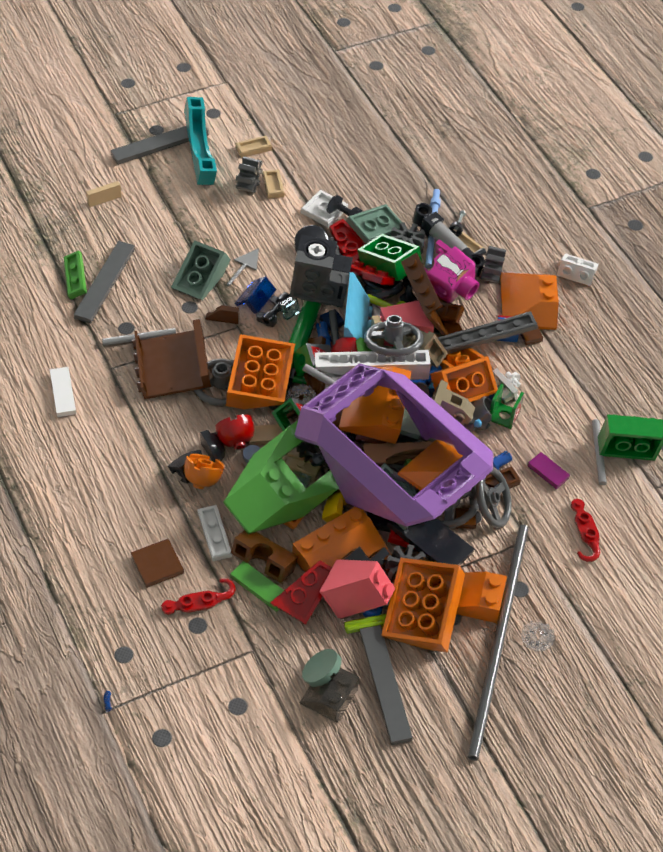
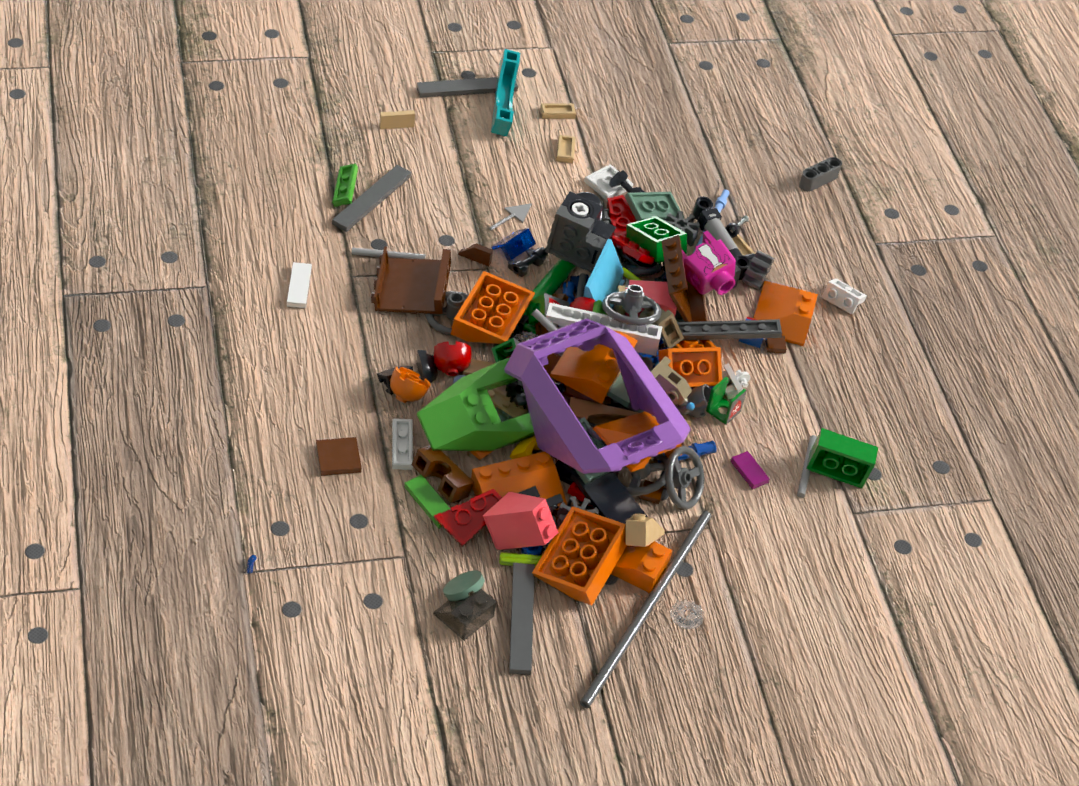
camera: 10 degrees right, 5 degrees down
(198, 600) = (367, 499): red piece -> none
(201, 270) = (468, 208): sand green slope -> none
(249, 174) = (543, 133): dark grey gear -> none
(289, 308) = (543, 262): clear light blue tile -> none
(450, 312) = (698, 302): reddish brown tile -> none
(474, 566) = (642, 530): none -> tan slope
(510, 476) = (709, 466): reddish brown tile -> none
(517, 151) = (820, 174): none -> dark grey beam
(587, 530) = (769, 532): red piece -> none

